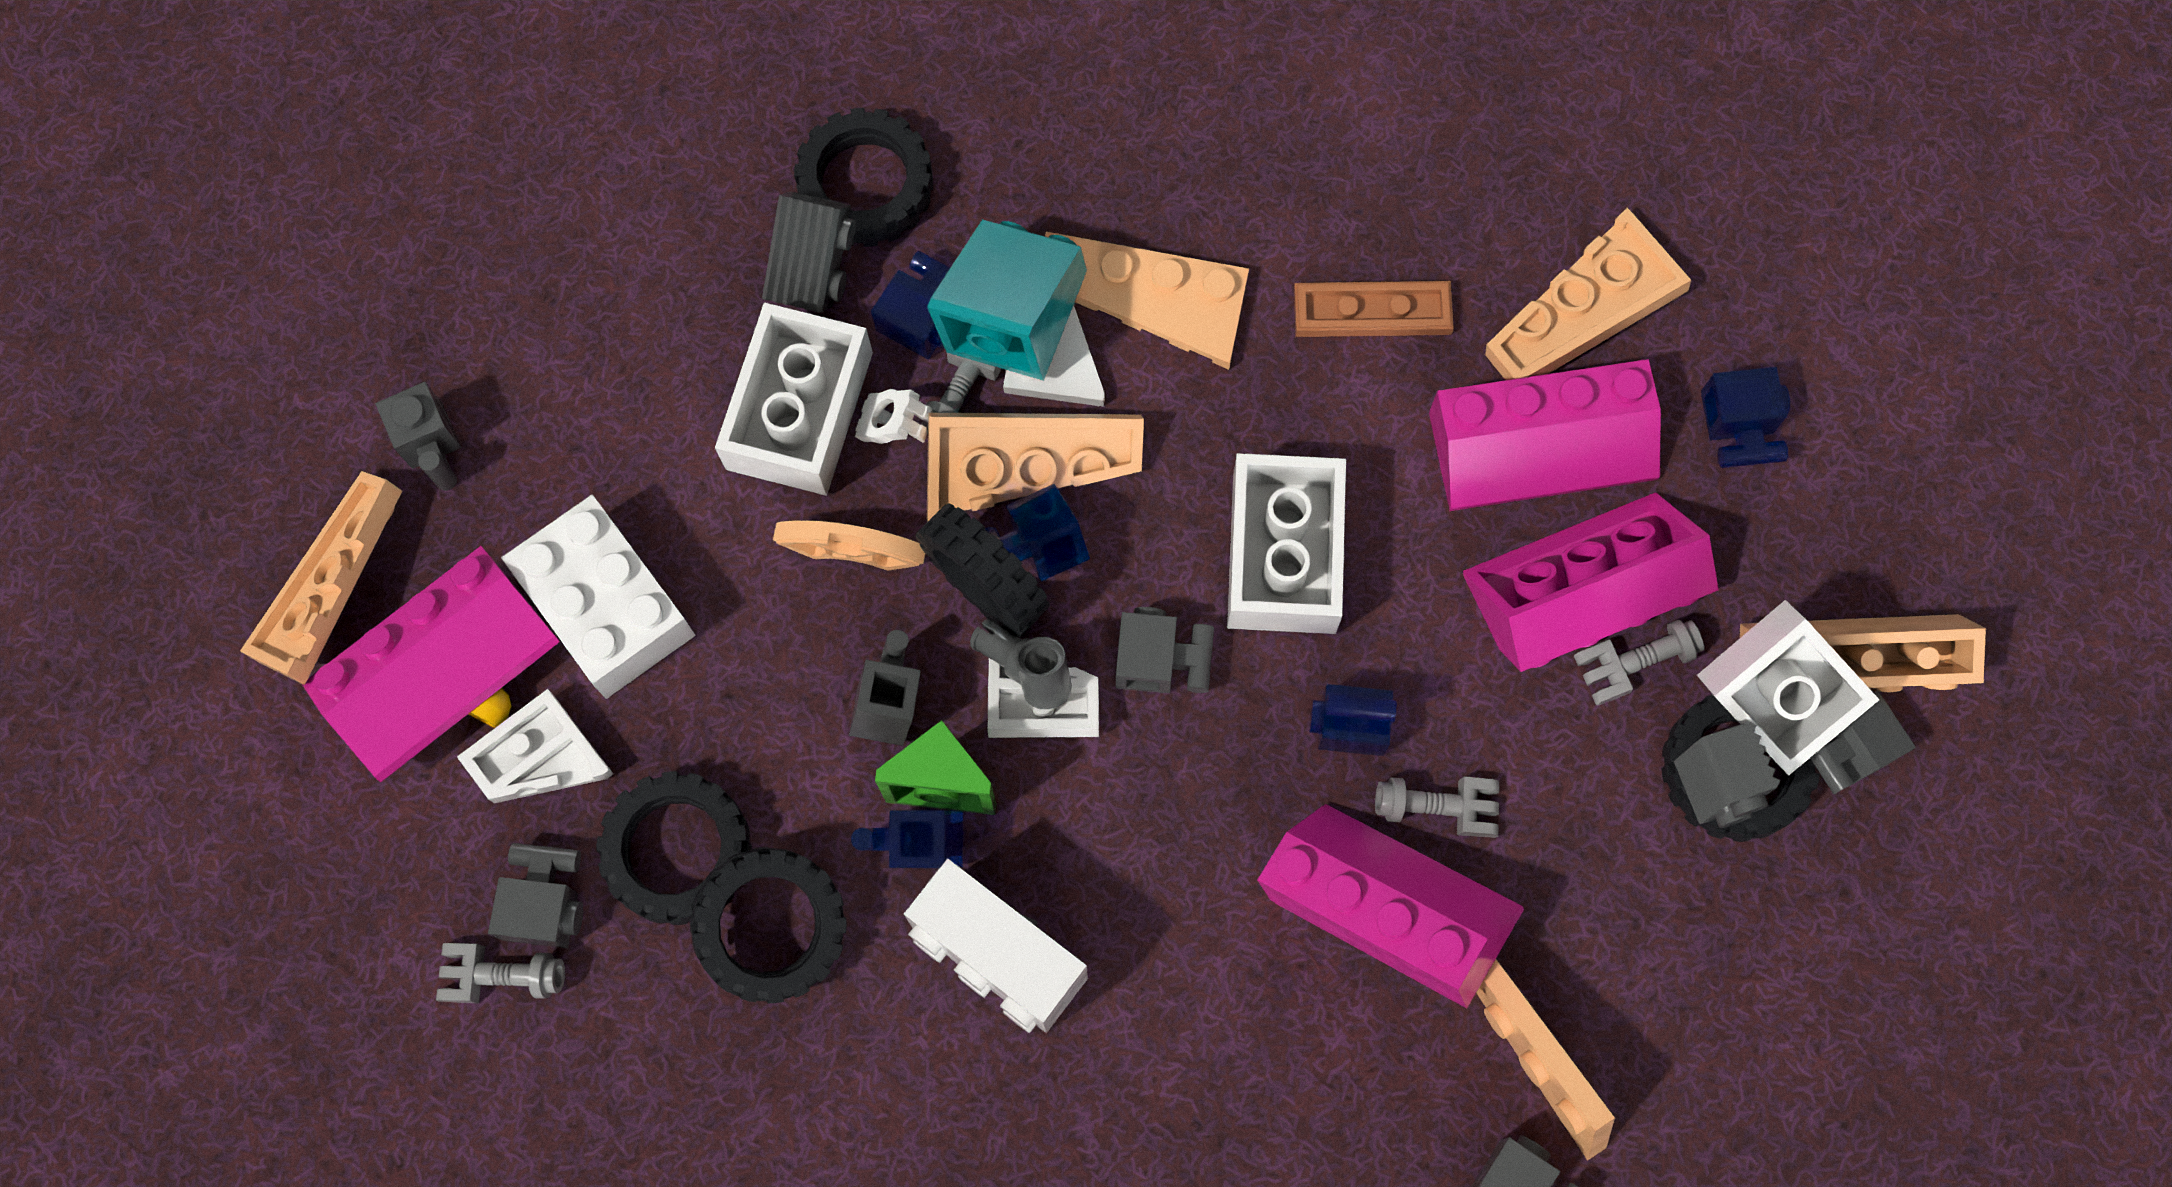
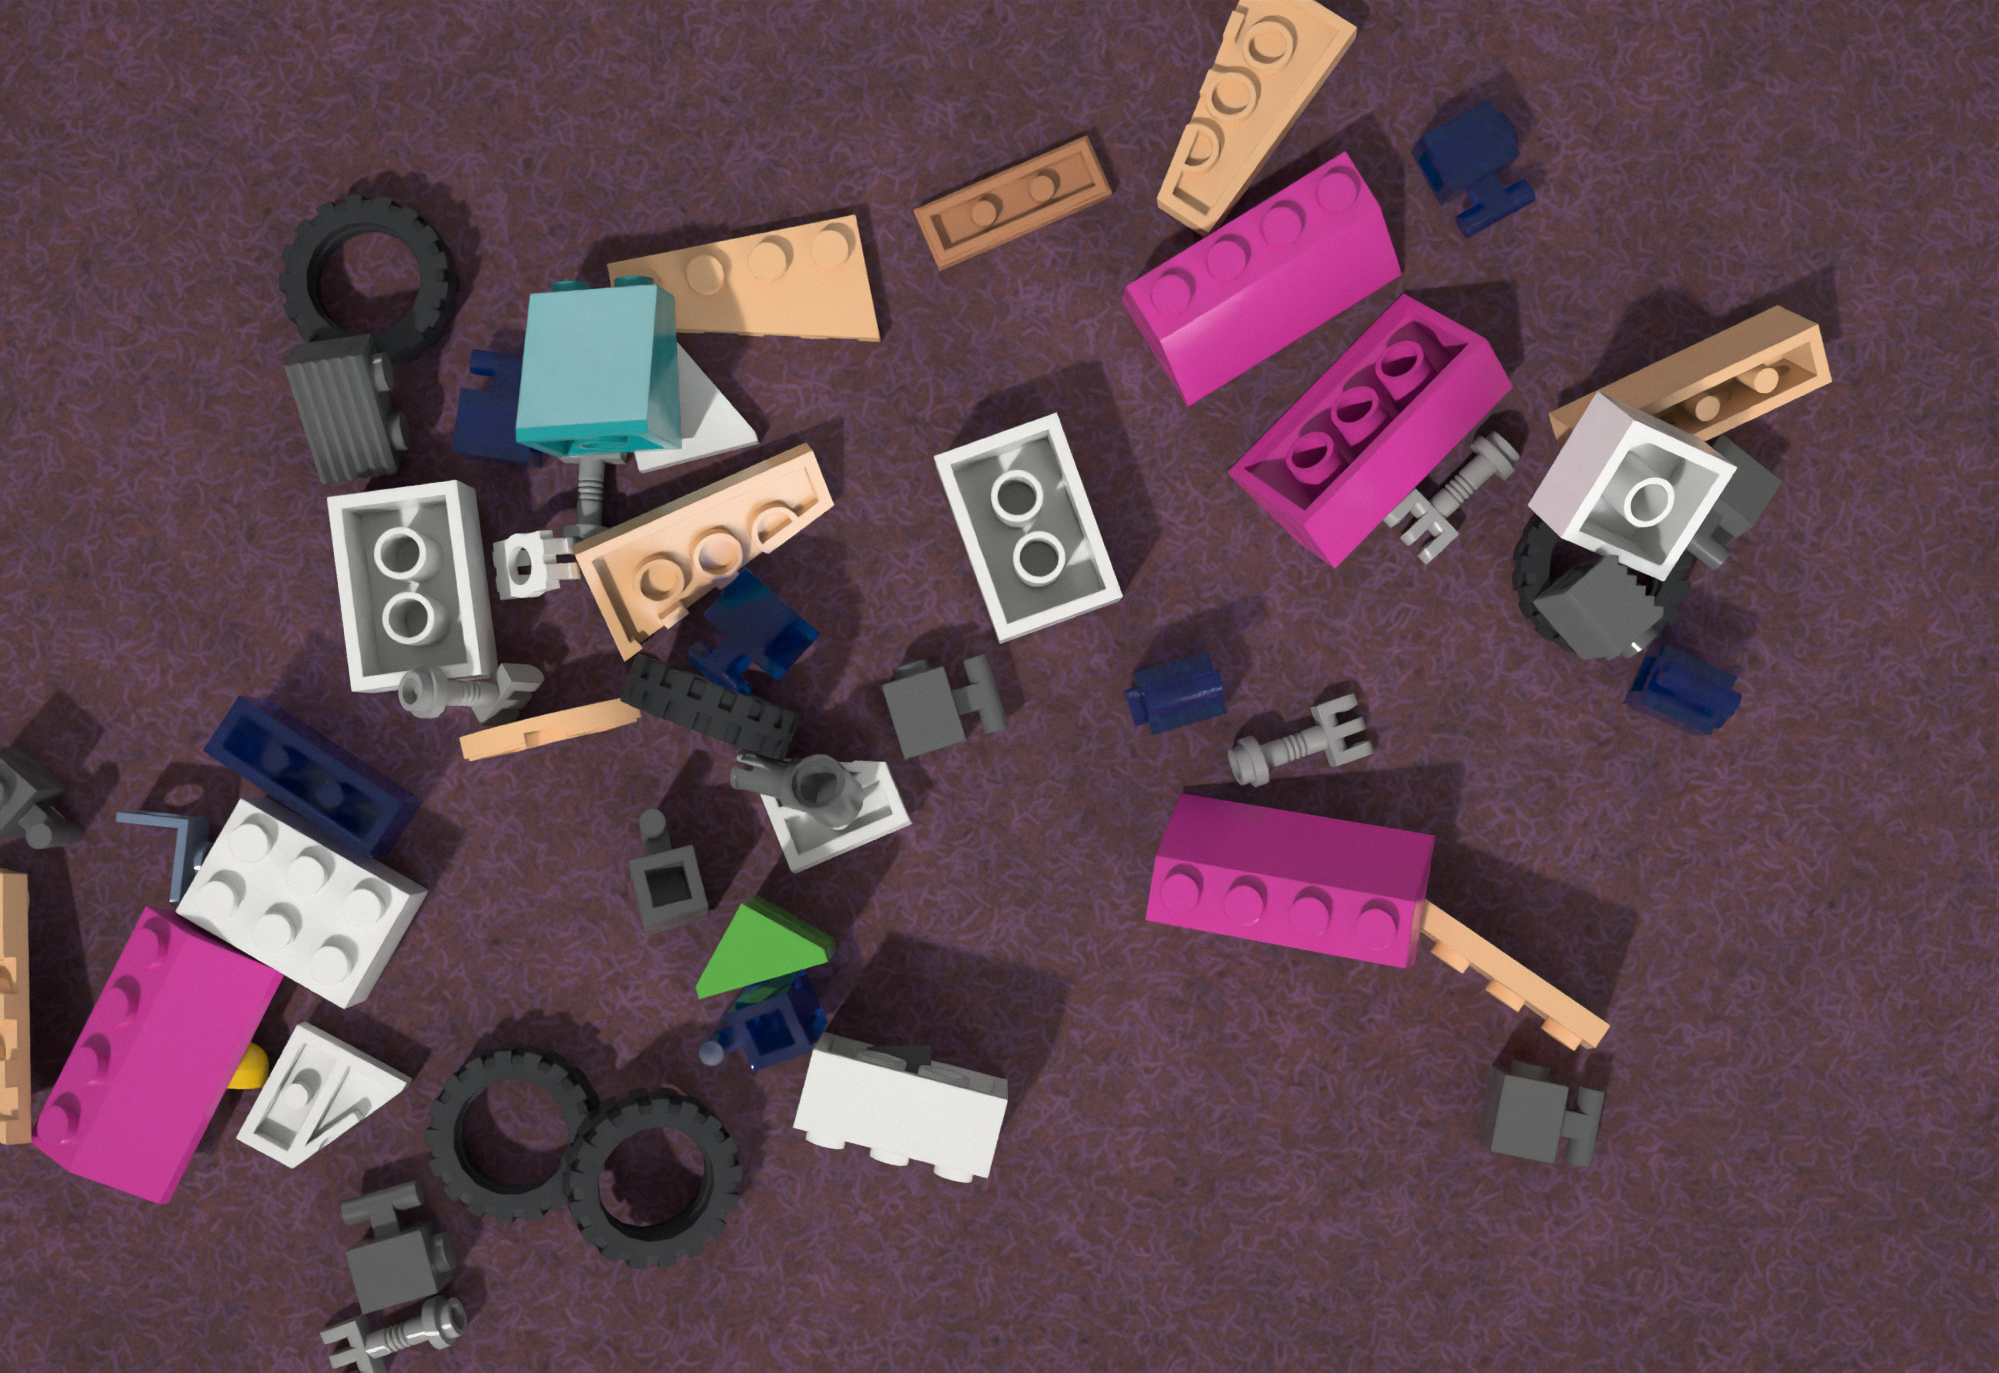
camera: 25 degrees left, 15 degrees up
(535, 517) = (190, 849): none -> sand blue bracket
(654, 505) = (313, 776): none -> clear blue brick
(773, 466) = (494, 702): none -> light grey hinge
(1775, 887) = (1683, 691): none -> clear blue brick

